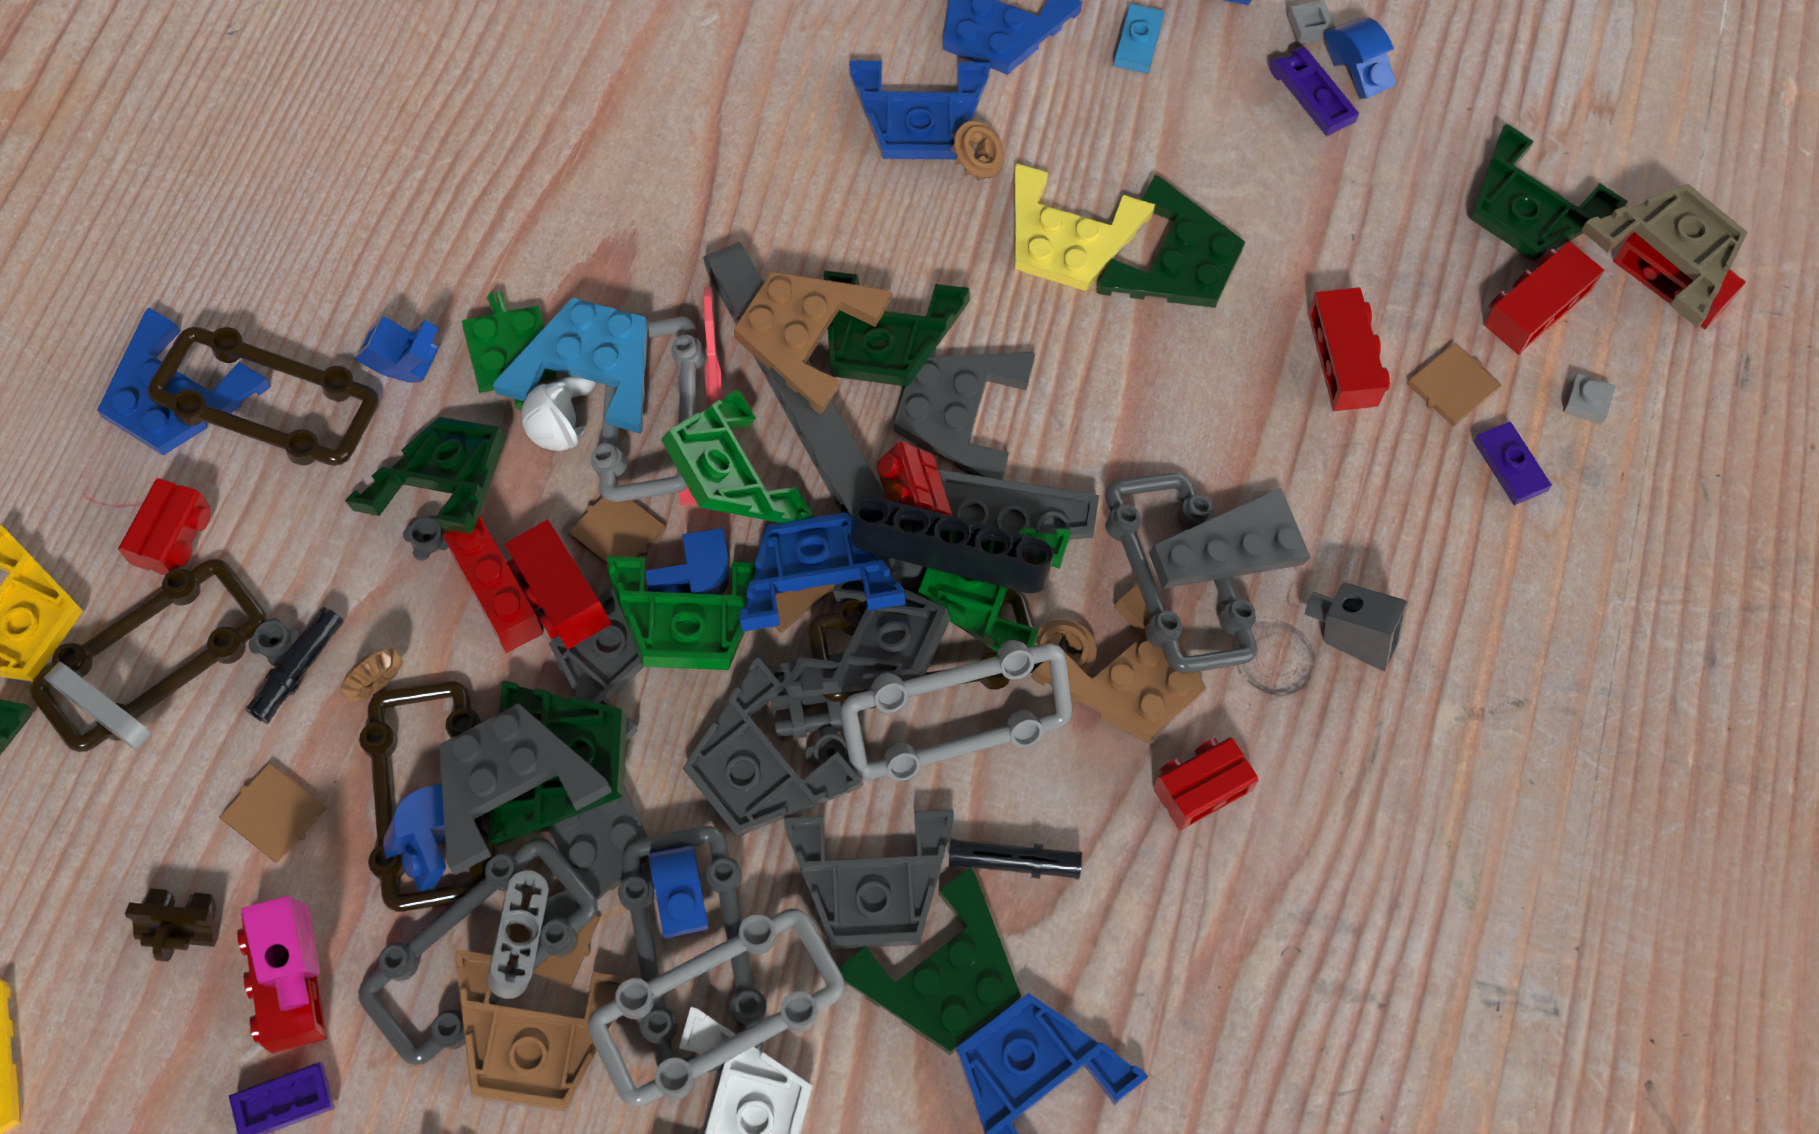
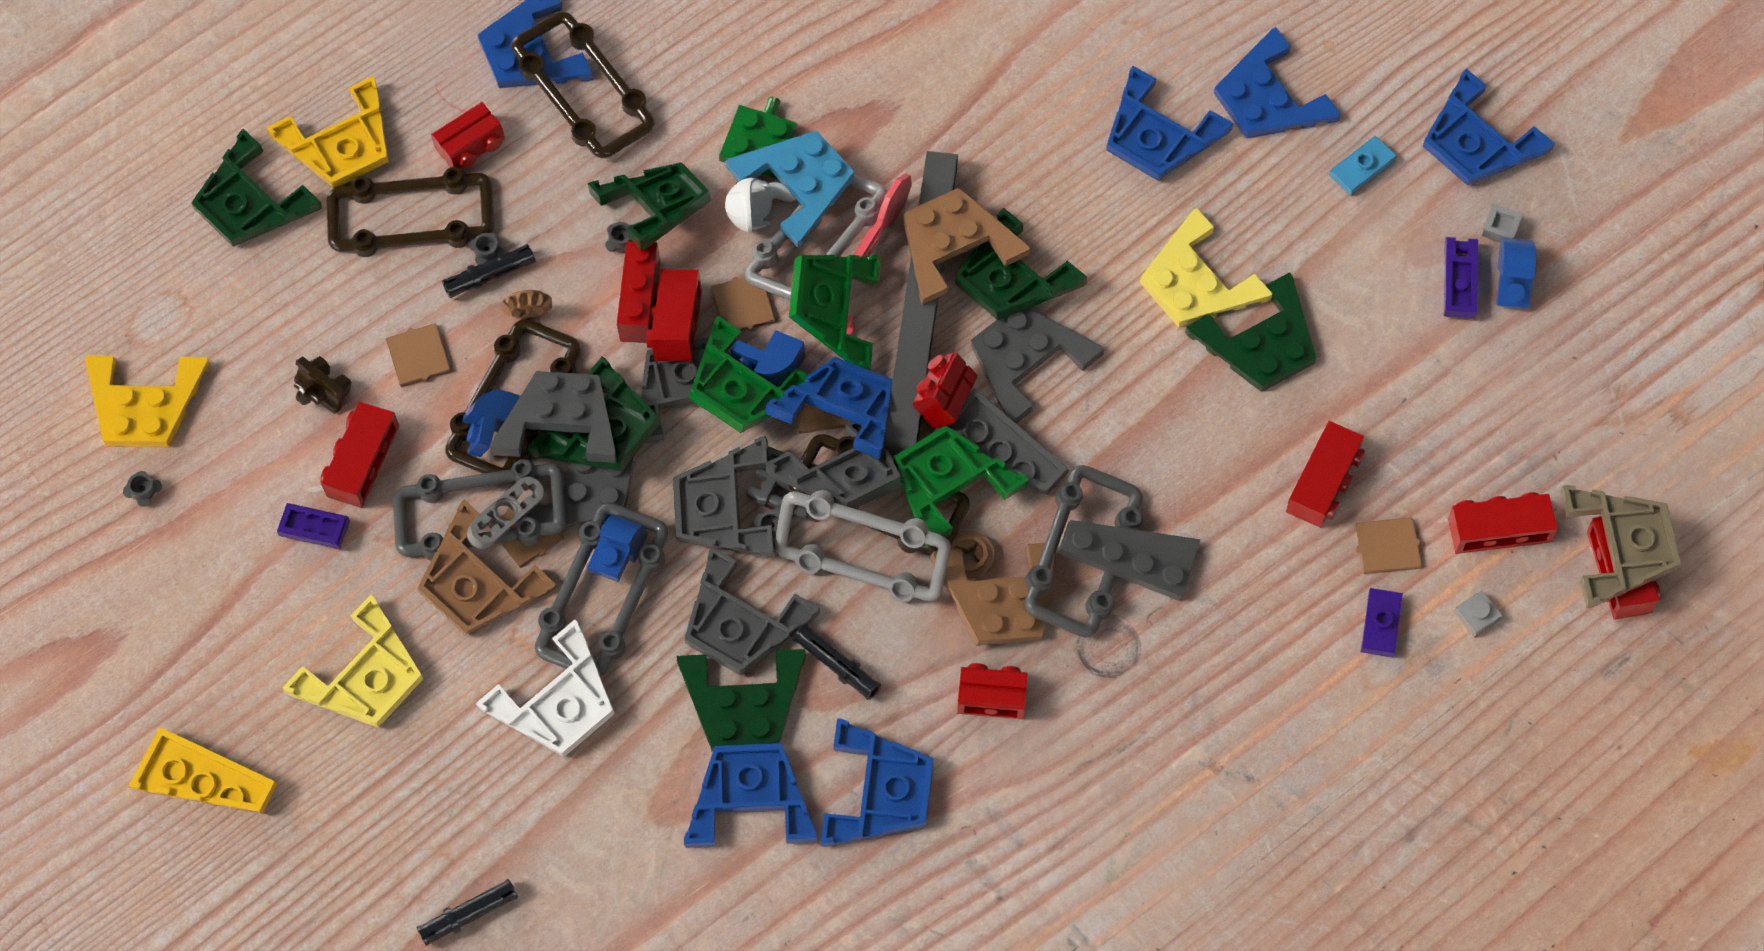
camera: 40 degrees right, 0 degrees up
(98, 706) = (358, 226): light grey beam -> none
(274, 931) = (367, 433): dark pink torso -> none
(398, 351) = (685, 102): blue brick -> none
(636, 999) = (632, 661): light grey bar -> none
(951, 544) = (934, 438): black beam -> none
(989, 150) = (1185, 186): medium nougat gear -> none
(1184, 962) = (893, 790): none -> blue wing
(1360, 622) = (1176, 658): dark grey torso -> none
(1527, 211) = (1545, 454): dark green wing -> none

